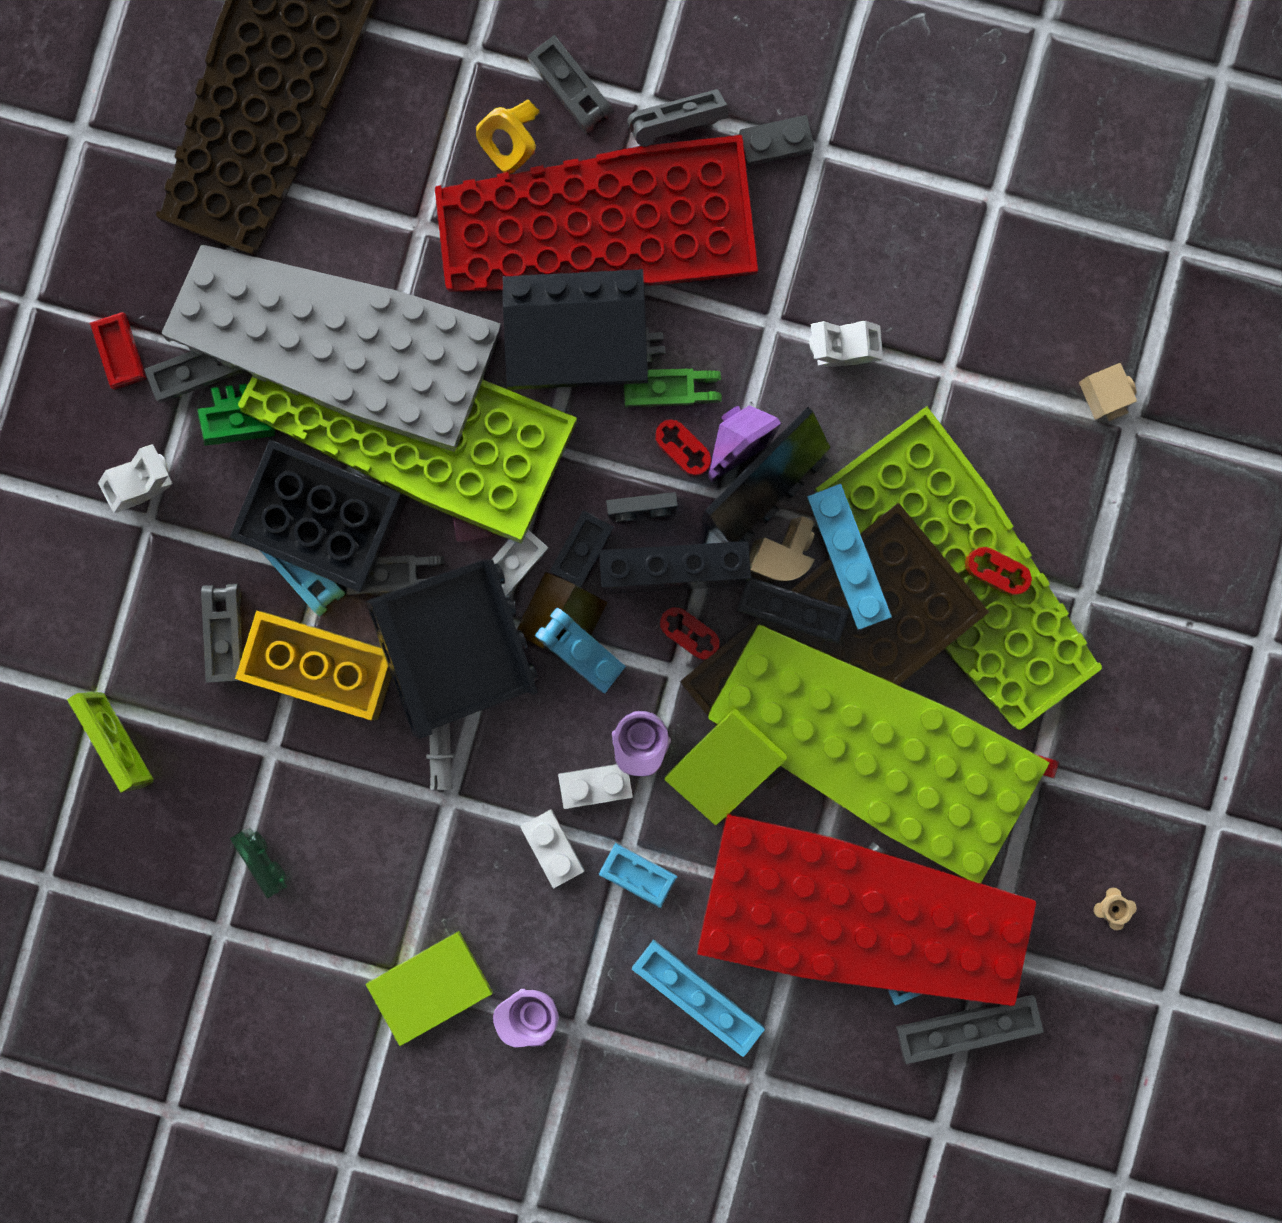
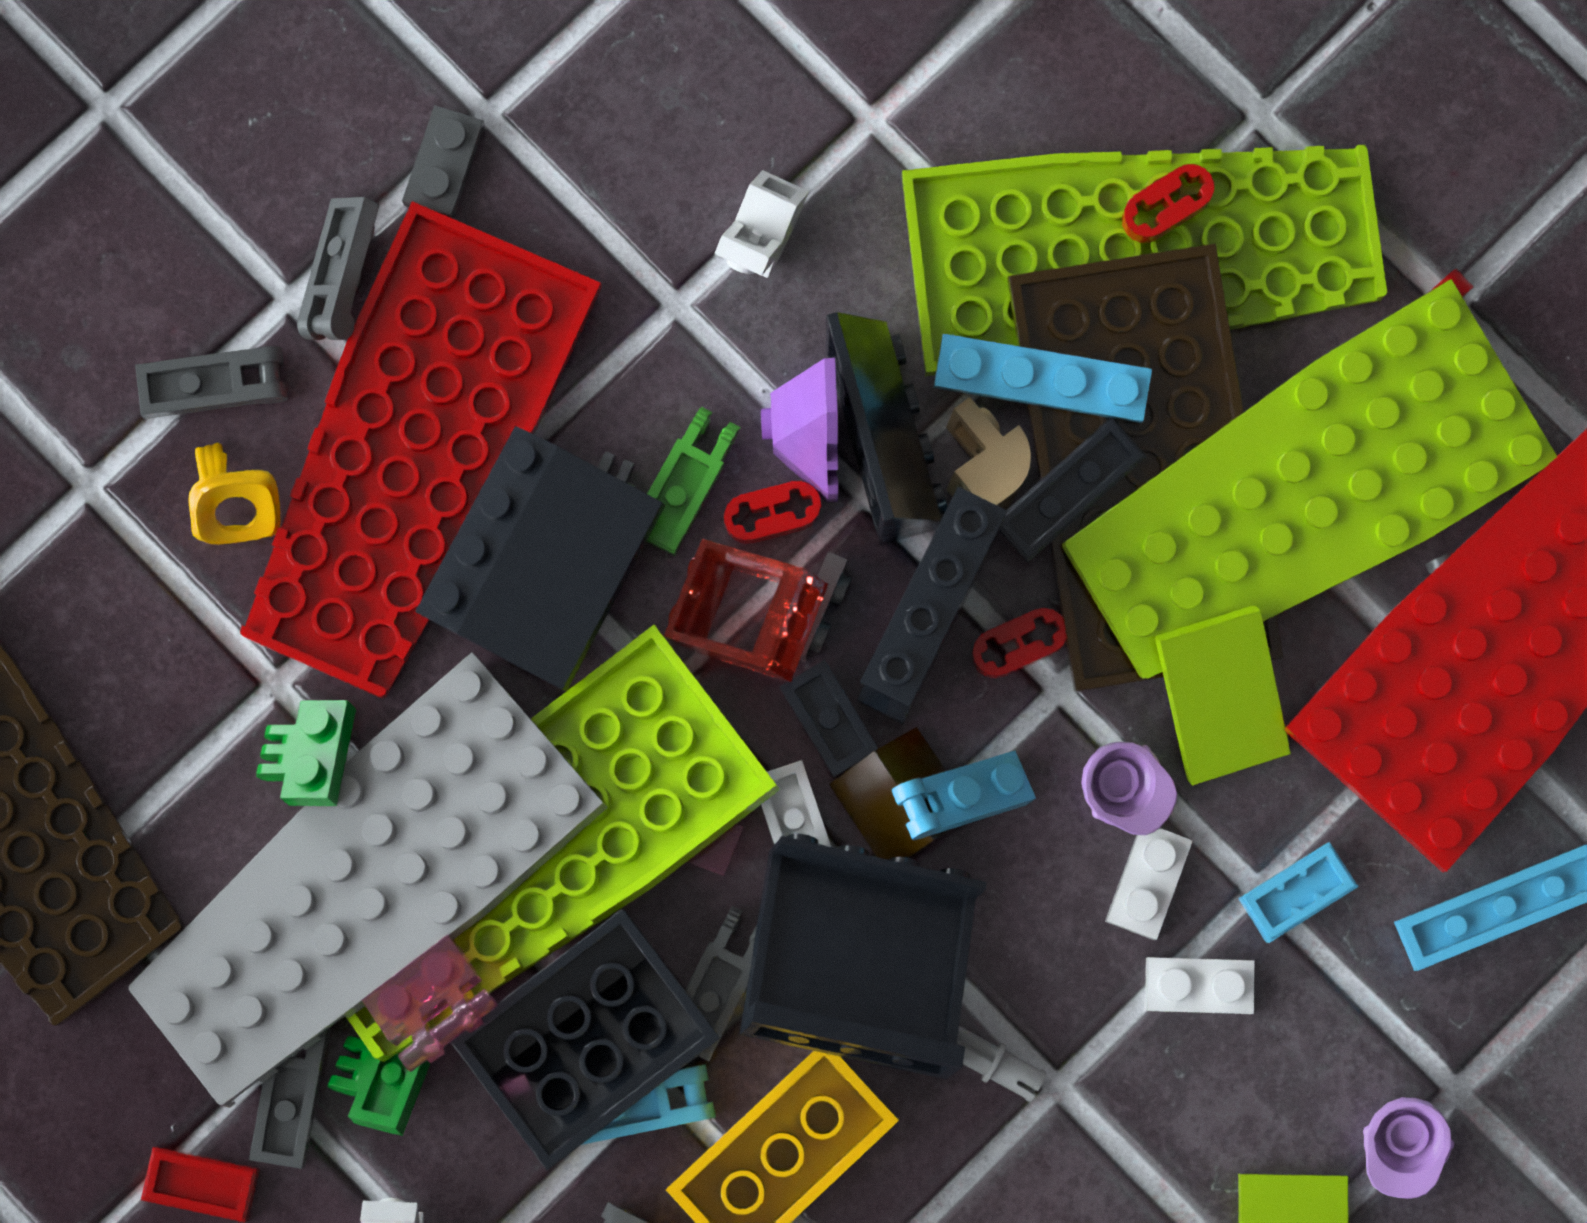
camera: 60 degrees left, 5 degrees down
(286, 407) = (423, 991): none -> clear pink plate
(390, 267) = (310, 753): none -> hinge
(616, 491) = (785, 624): none -> clear red window

